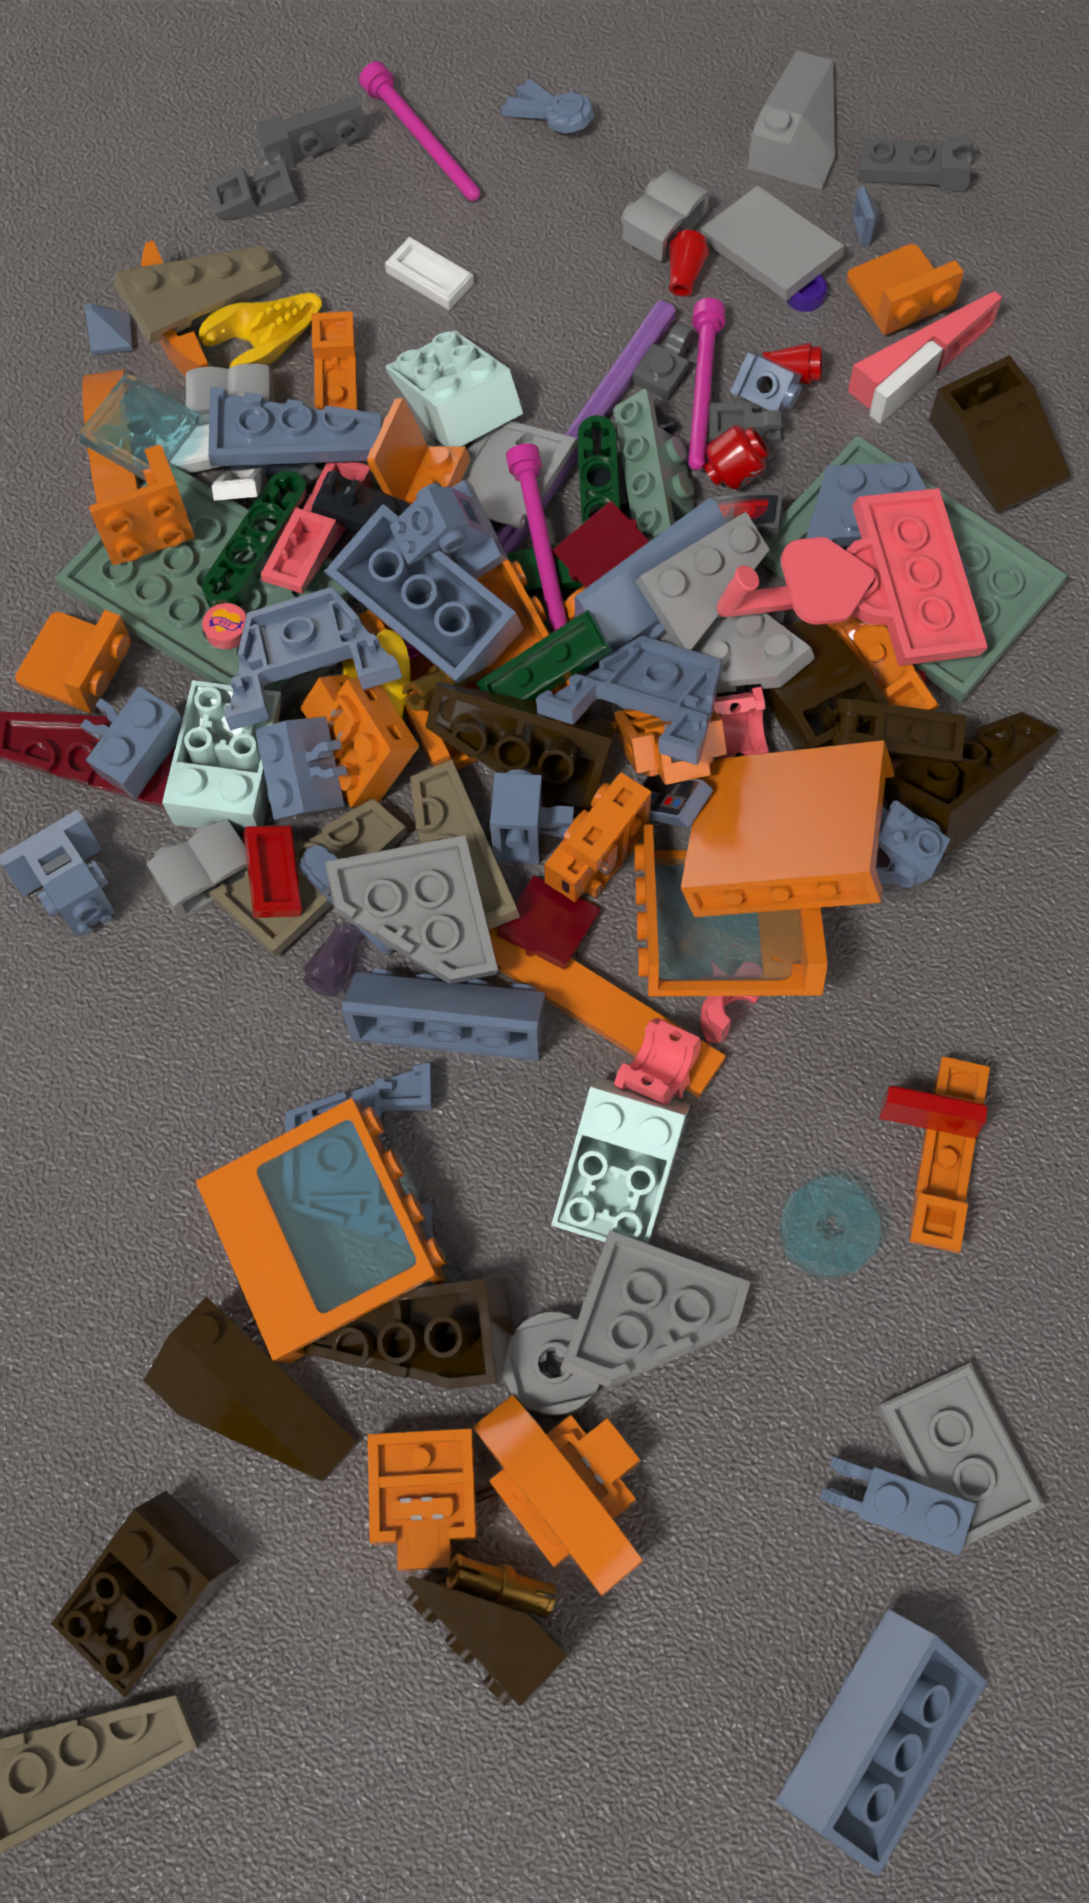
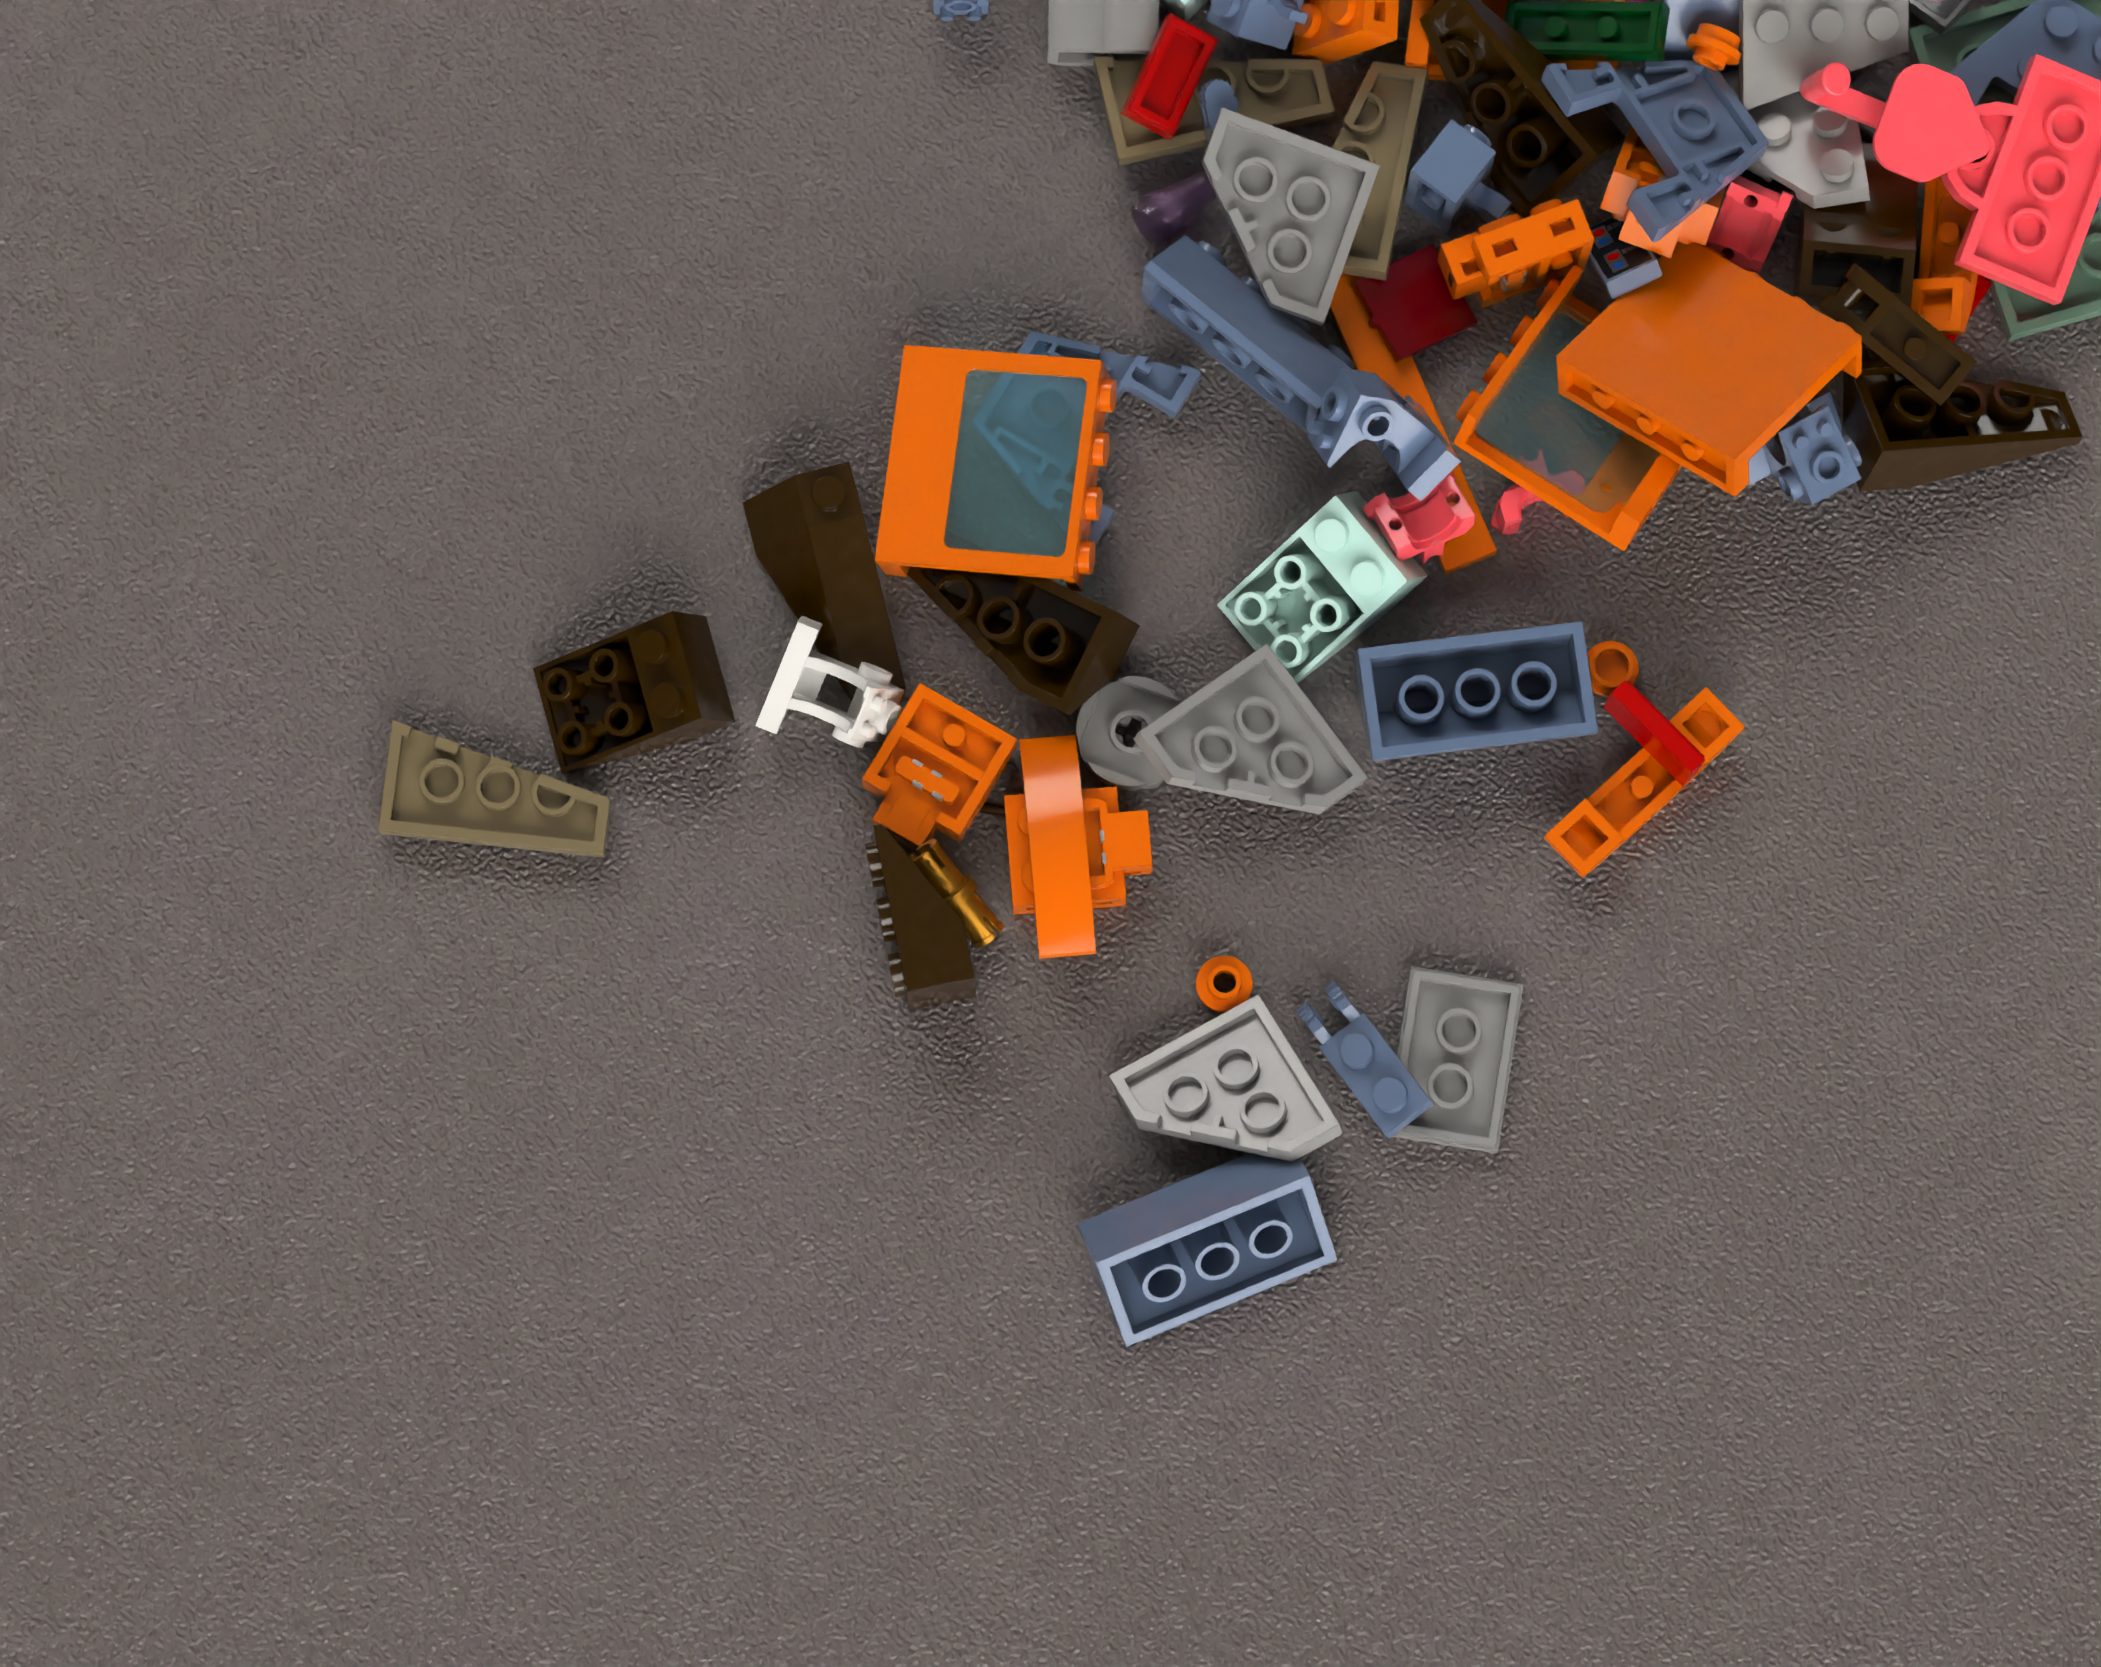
camera: 30 degrees right, 10 degrees up
(272, 1494) = (800, 680): none -> white tile
(572, 1009) = (1401, 431): none -> sand blue tile
(640, 621) = (1714, 46): none -> orange plate
(740, 1527) = (1217, 1000): none -> orange plate
(786, 1167) = (1475, 691): none -> sand blue slope
(818, 1600) = (1230, 1088): none -> light grey plate
(853, 1213) = (1481, 810): clear light blue plate -> none
(863, 1088) = (1611, 665): none -> orange plate

